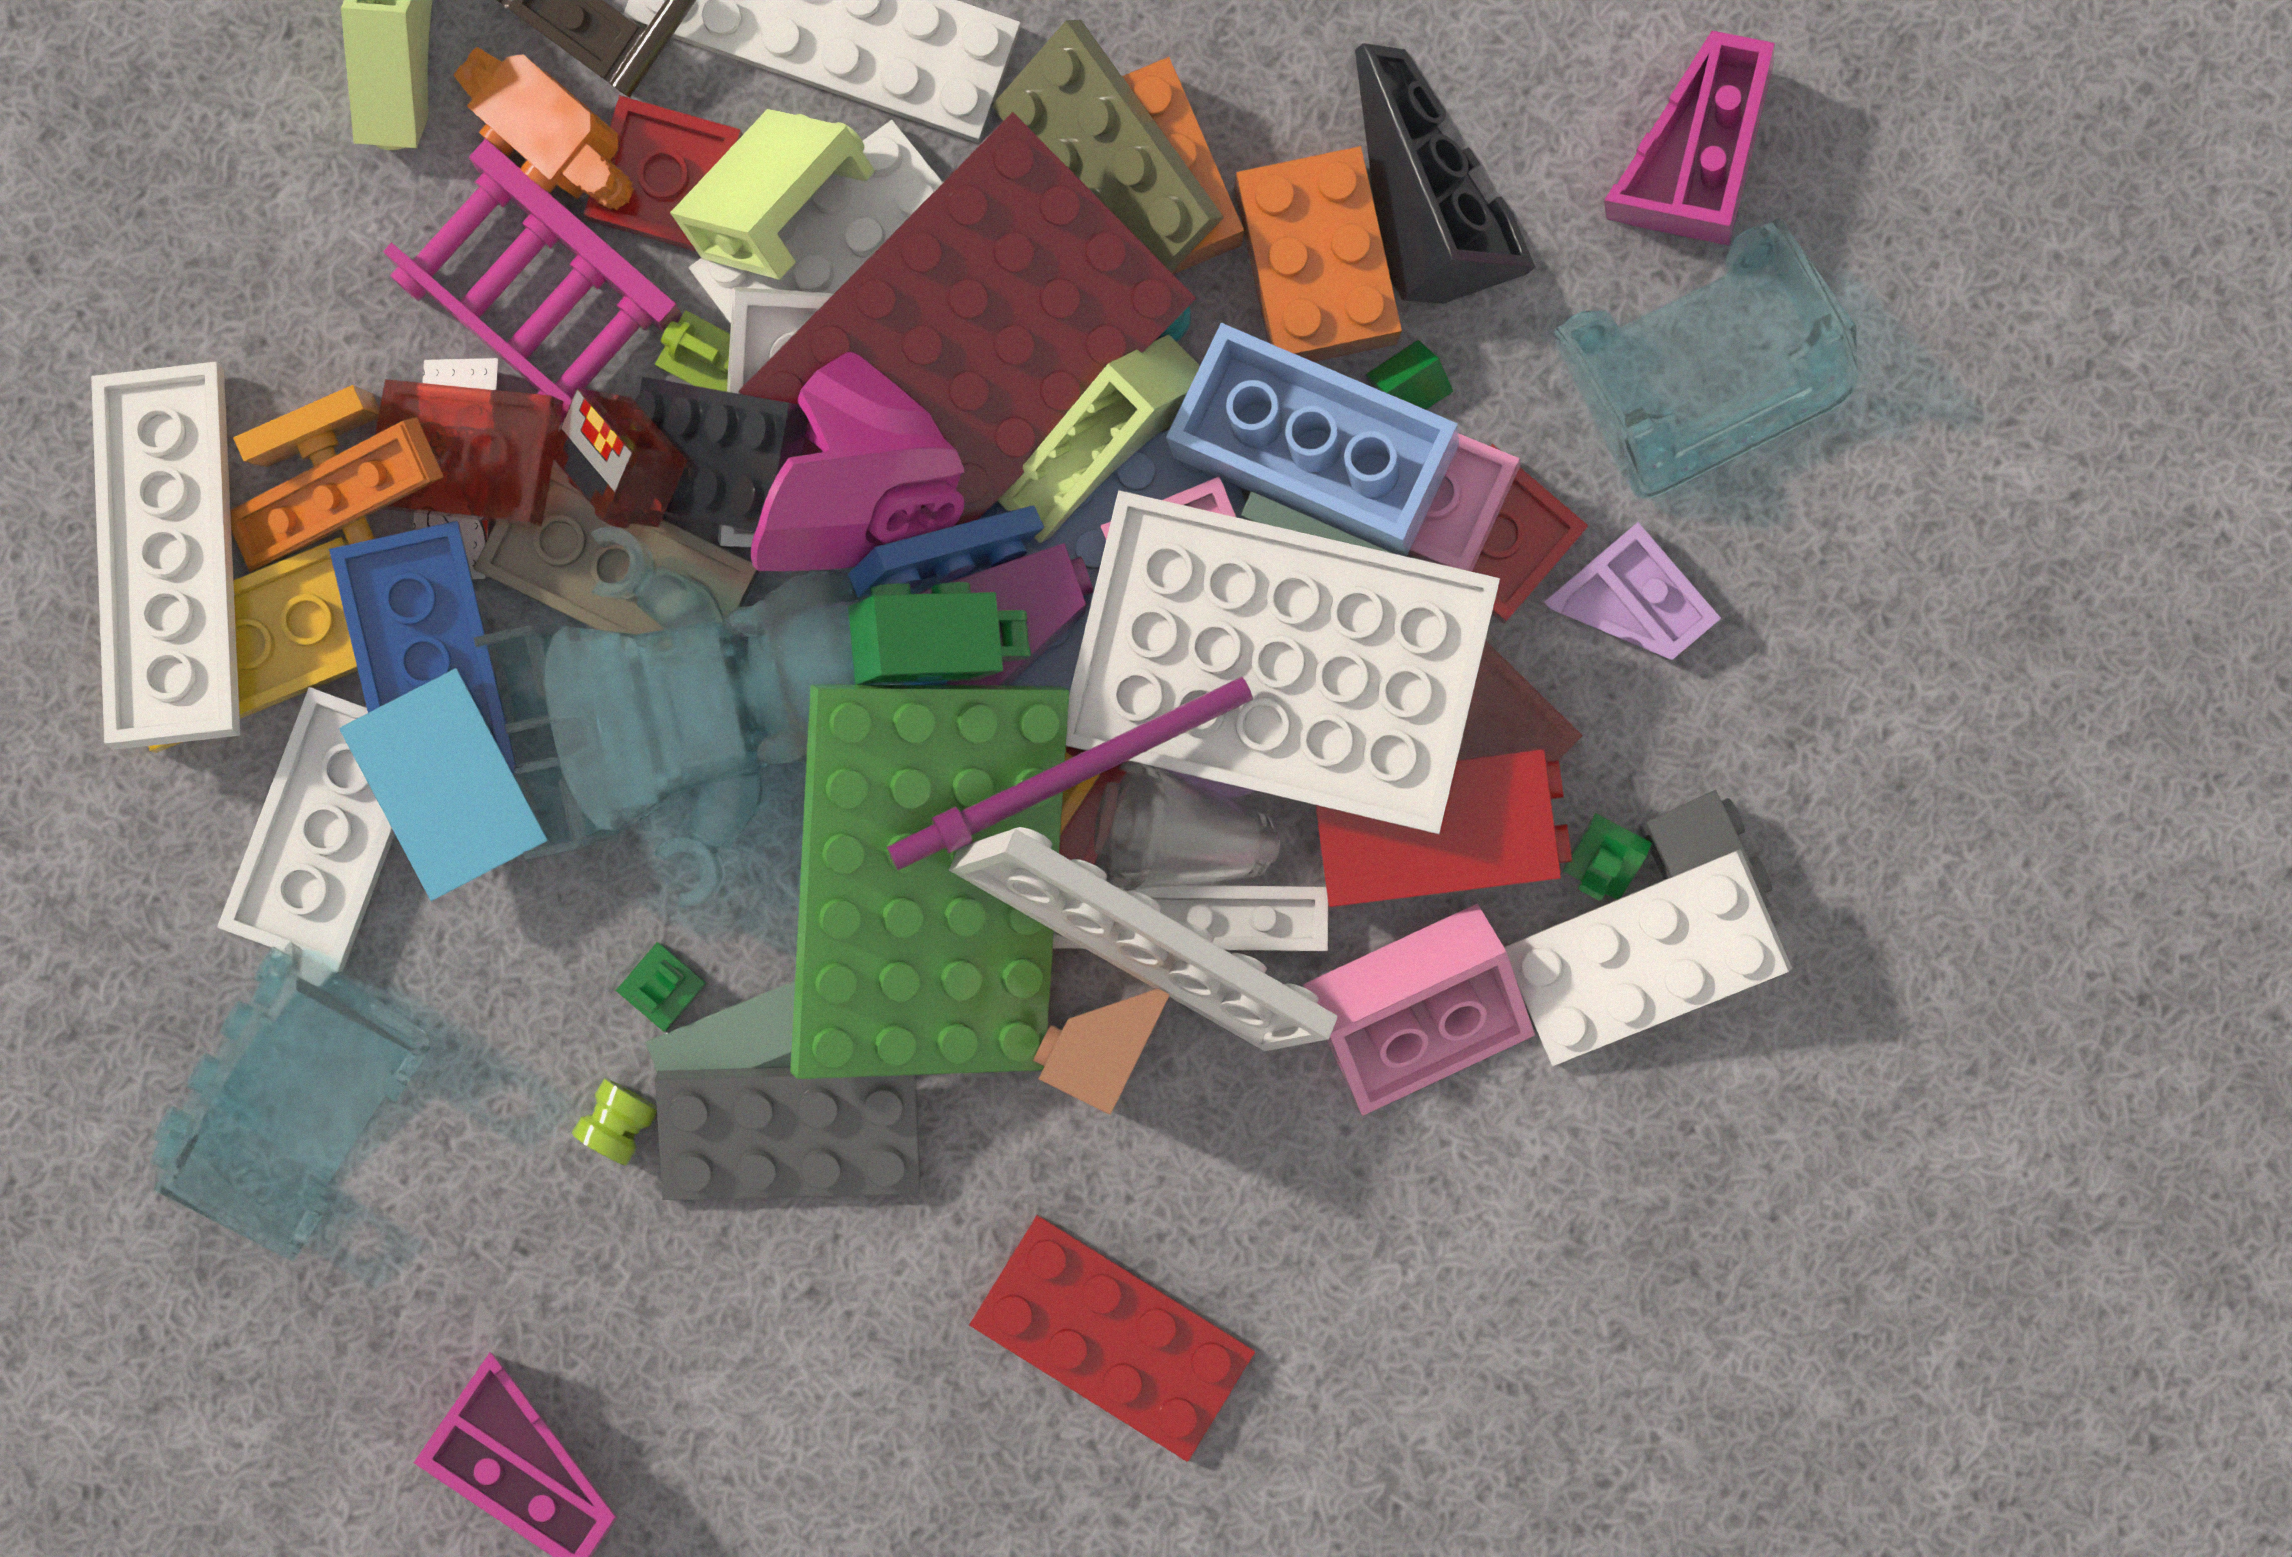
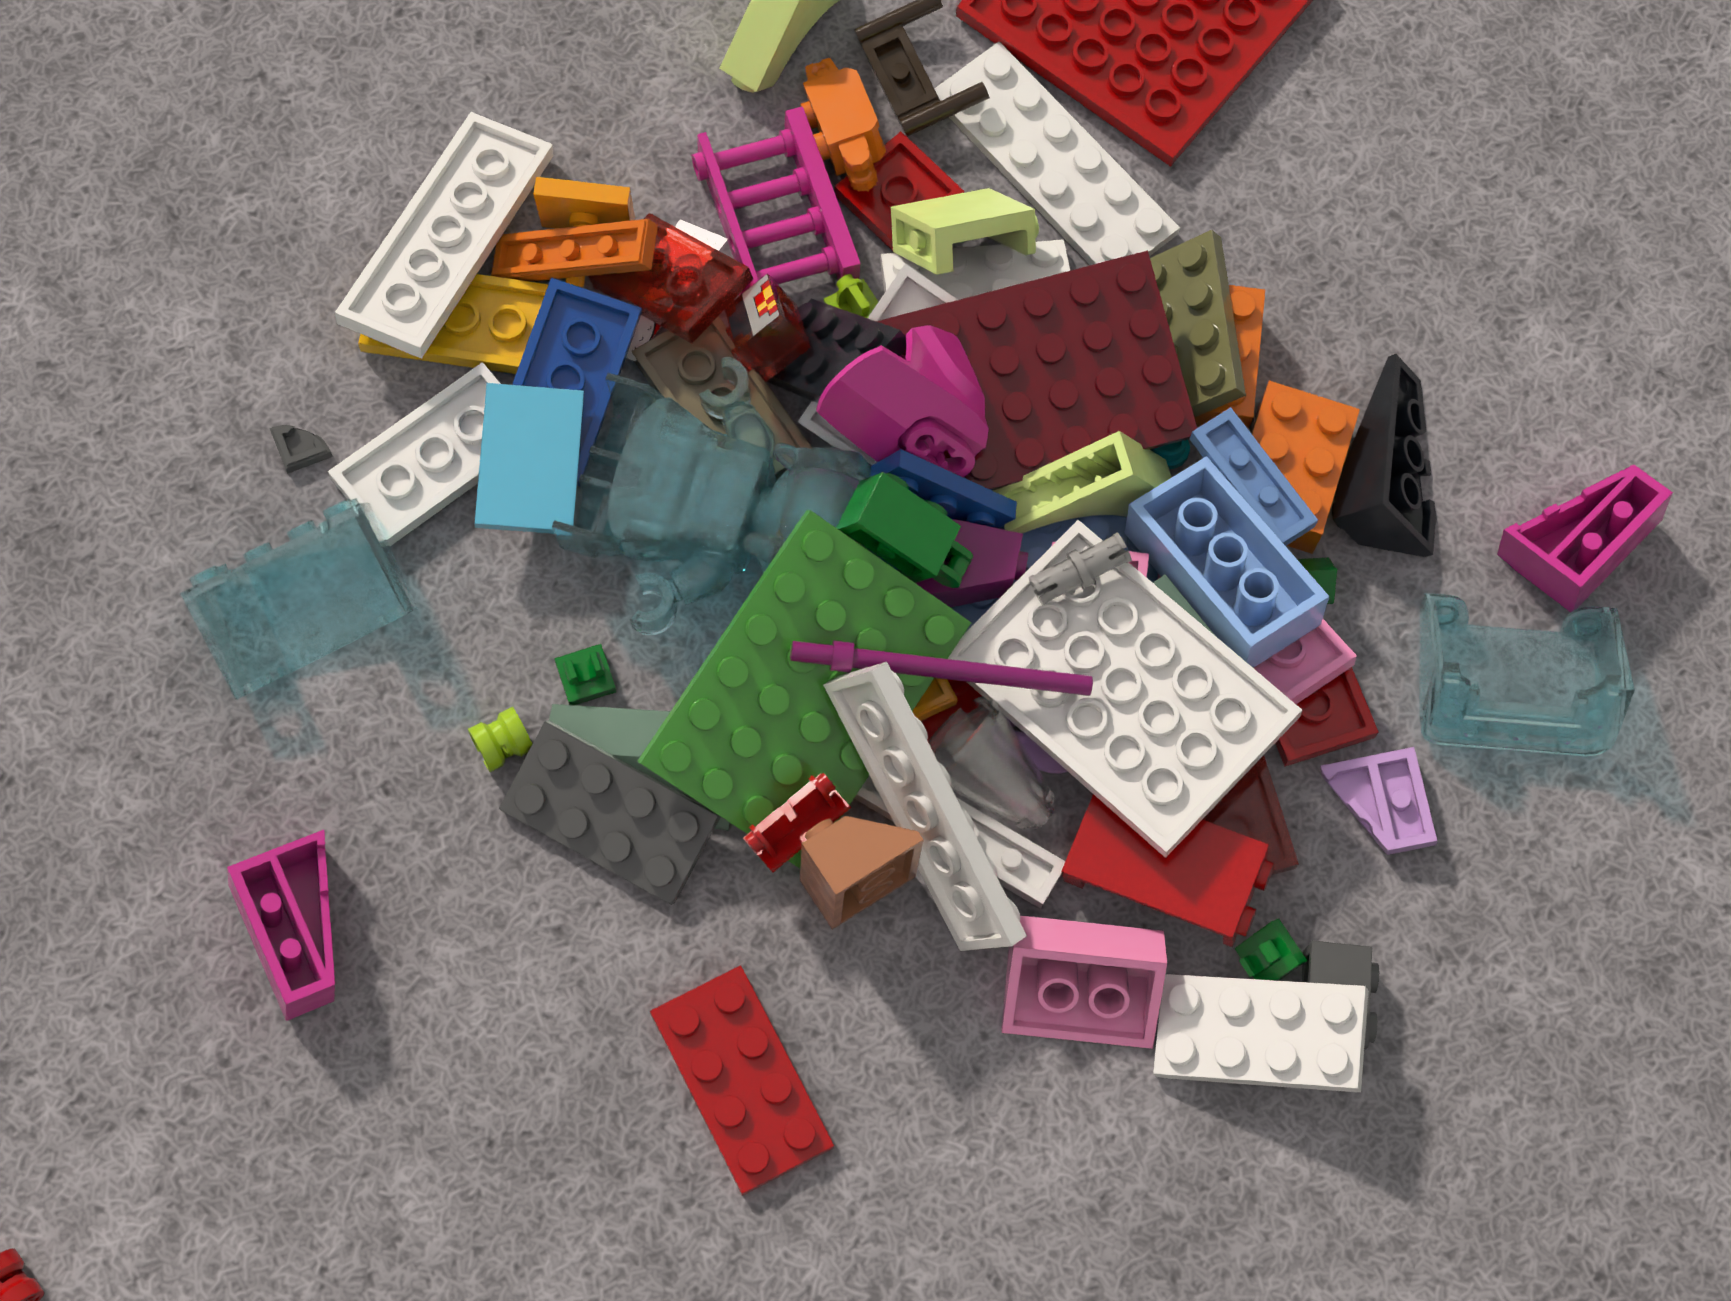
camera: 30 degrees right, 15 degrees down
(161, 912) = (299, 447): none -> dark grey tile
(1008, 1036) = (784, 830): none -> red hinge
(1156, 556) = (1080, 568): none -> light grey pin
(1288, 316) = (1254, 475): none -> medium blue plate

